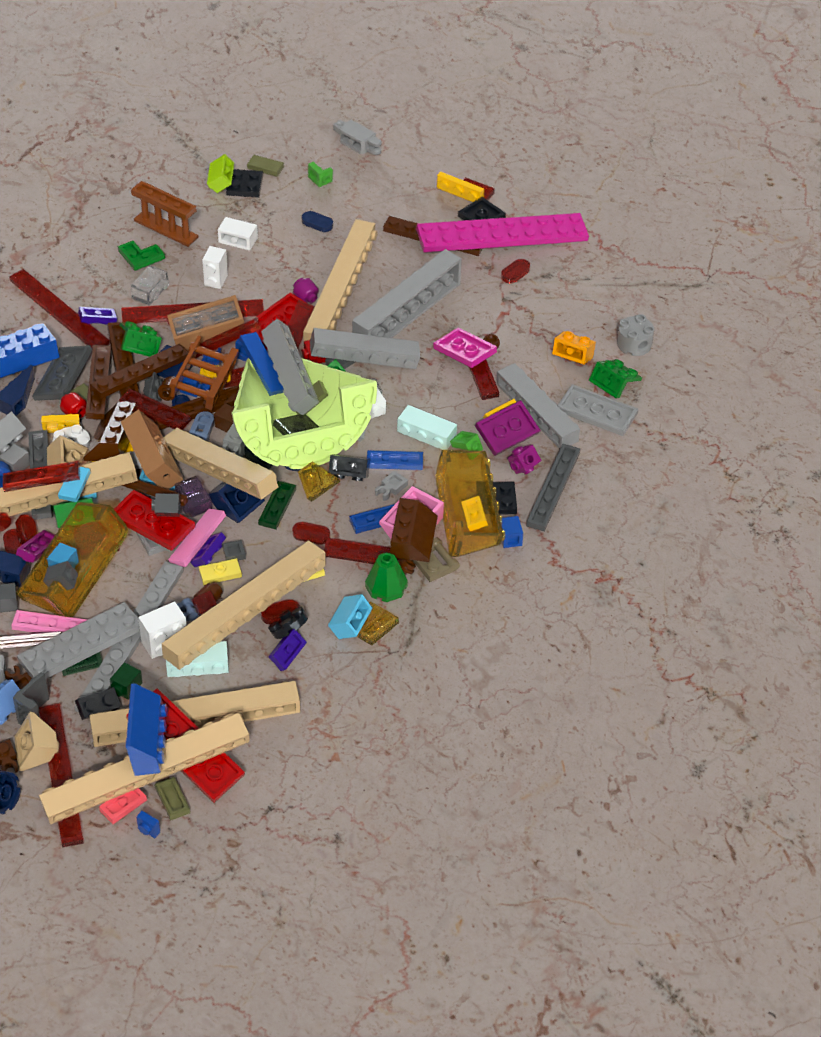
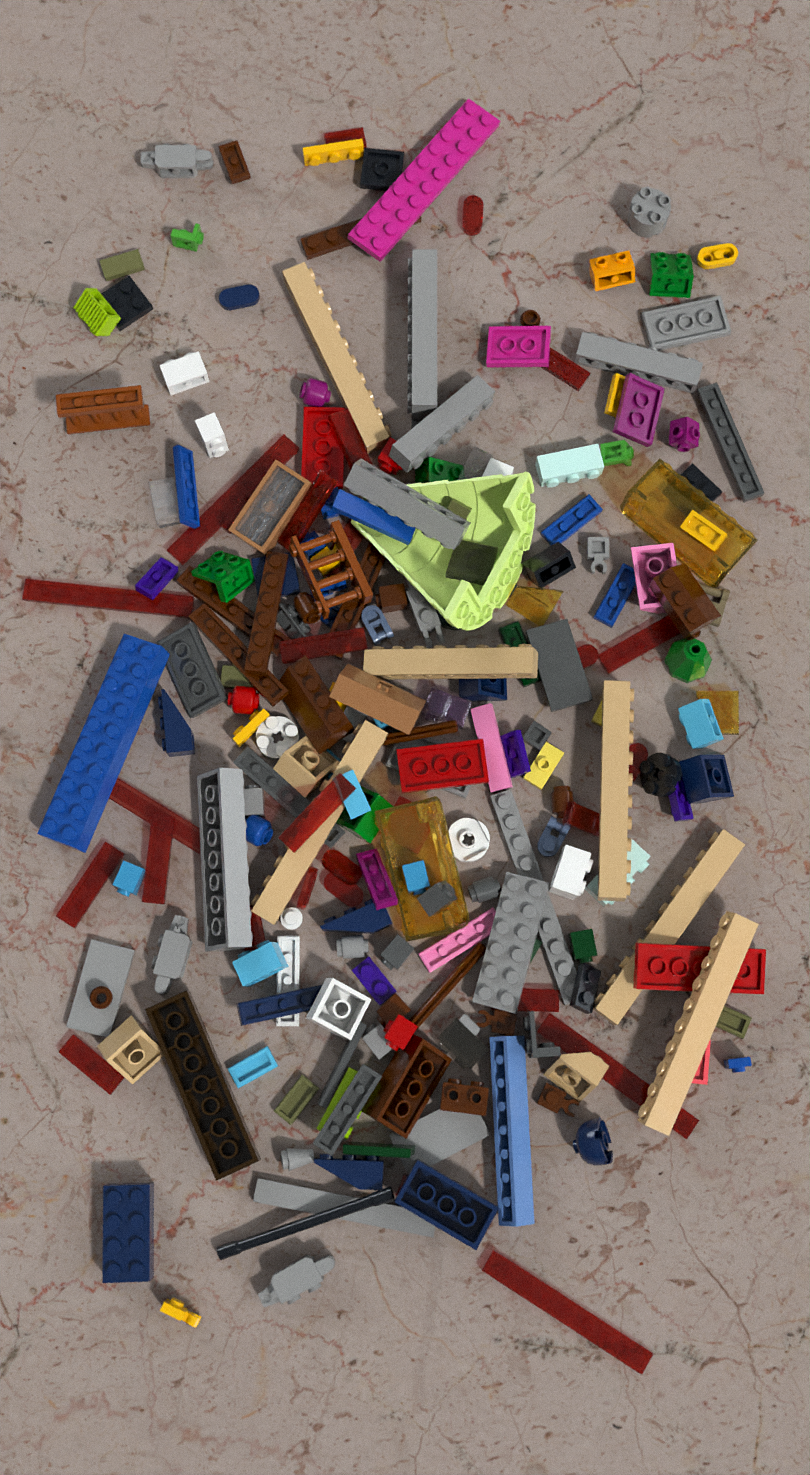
camera: 40 degrees left, 30 degrees up
(61, 692) = (538, 1000): none -> clear red tile
(97, 604) = (484, 889): none -> dark grey brick
(126, 582) = (472, 828): none -> white plate
(140, 258) = (120, 477): green plate -> none
(146, 731) = (687, 1000): blue slope -> none
(166, 505) = (452, 747): dark grey brick -> none
(170, 283) = (186, 486): none -> blue tile
(292, 522) = (559, 665): none -> dark grey tile
(320, 651) = (706, 778): none -> dark blue slope
(392, 158) = (234, 162): none -> reddish brown plate
(513, 532) = (744, 516): blue brick -> none
(659, 387) = (715, 255): none -> yellow plate

